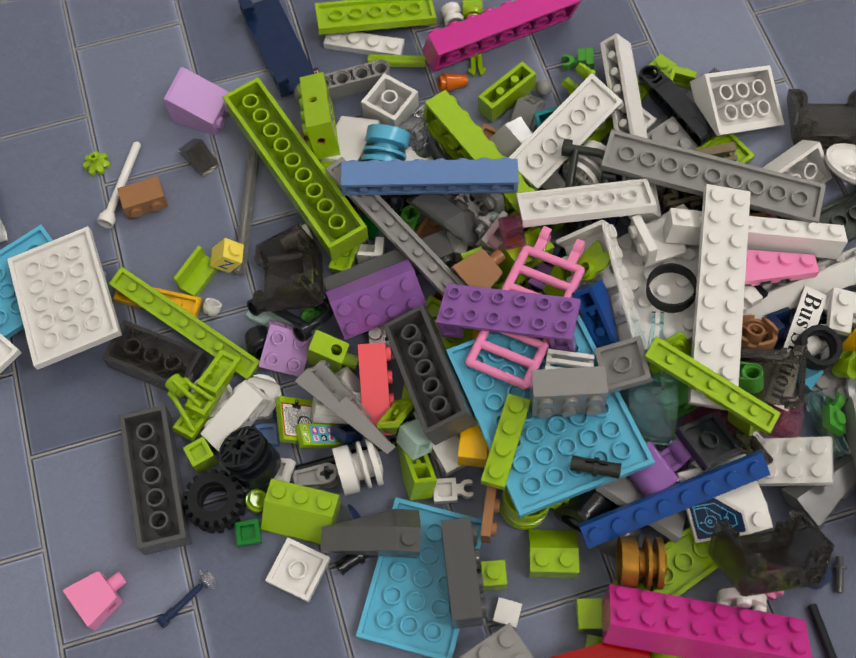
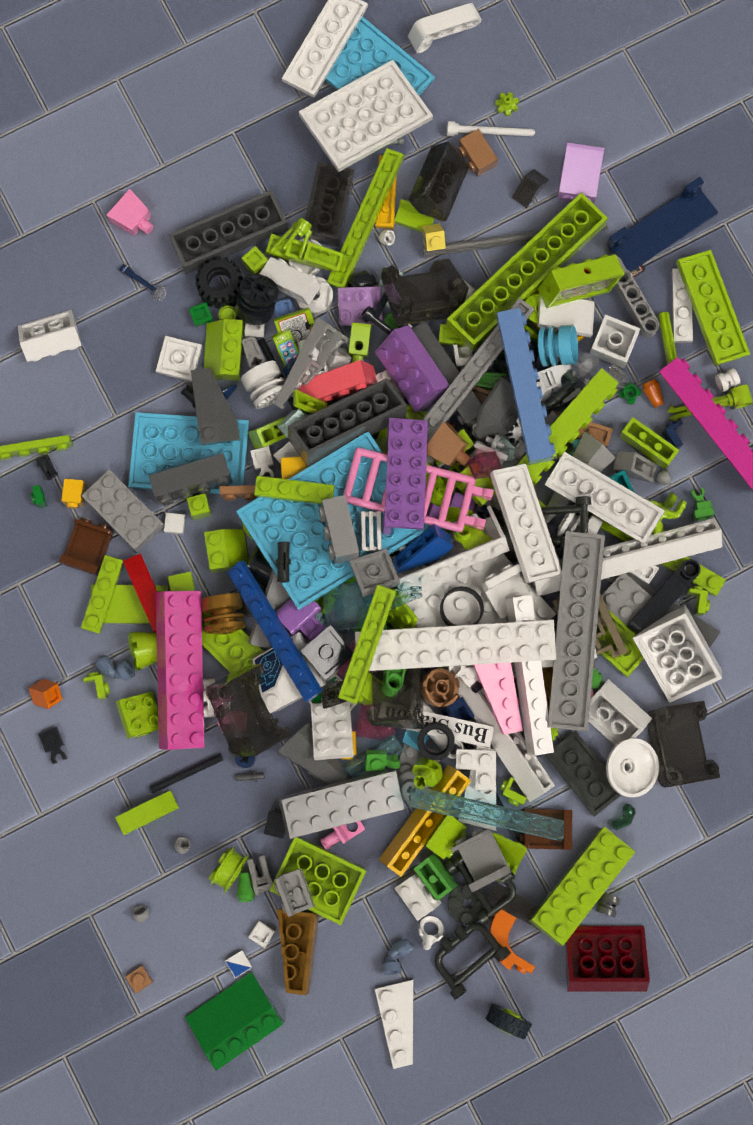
camera: 75 degrees right, 15 degrees up
(165, 237) = (439, 182): none -> clear smoke slope
(497, 72) = (670, 434): none -> dark blue bracket

